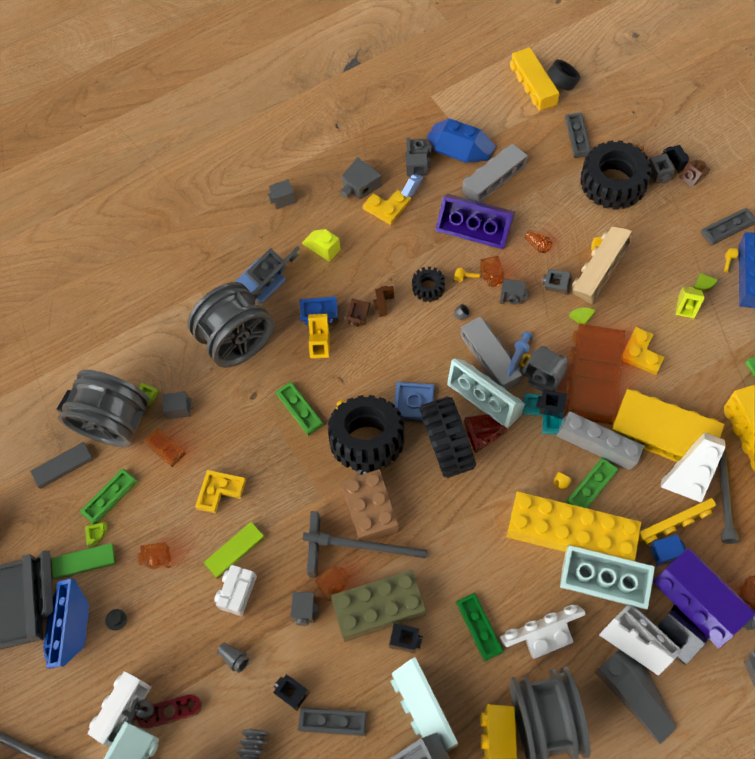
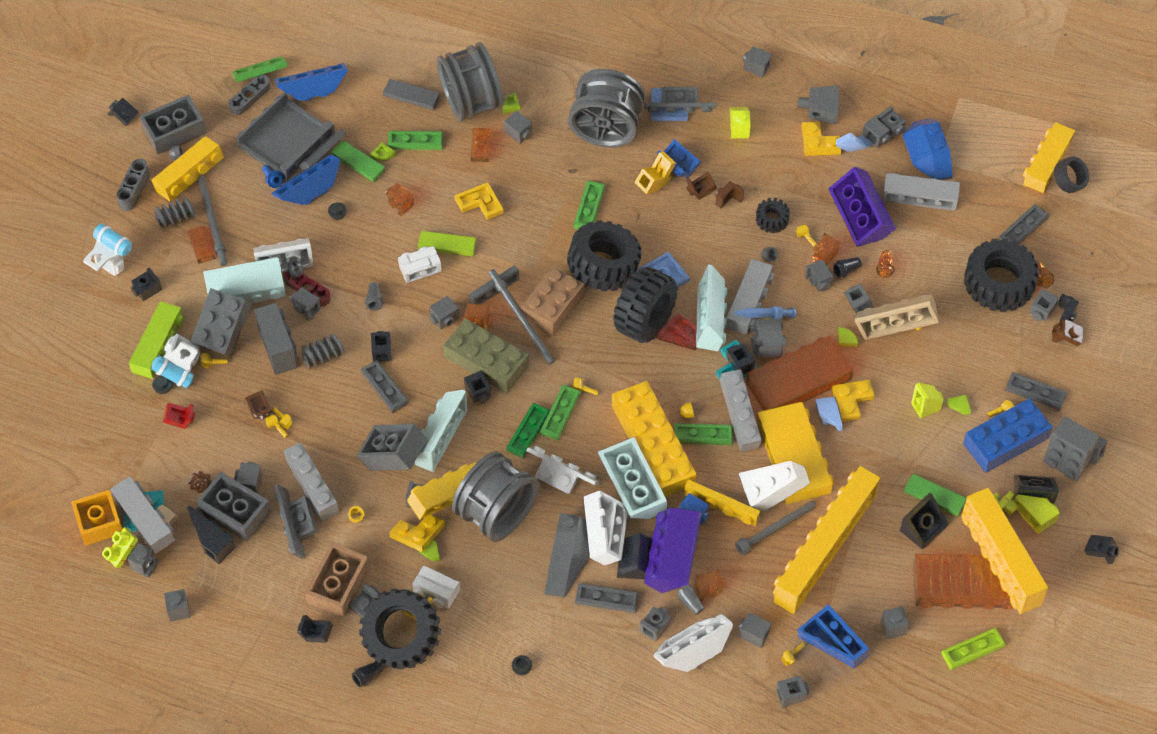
camera: 45 degrees right, 5 degrees down
(31, 651) = (273, 178): none -> blue plate
(185, 728) = (305, 303): none -> dark grey brick
(467, 550) = (579, 385): none -> yellow hand
(482, 585) = (560, 412): none -> bright green tile
(519, 268) = (846, 266): none -> black cone
(644, 376) = (829, 412): none -> light blue slope
(703, 691) = (606, 598): none -> dark grey tile

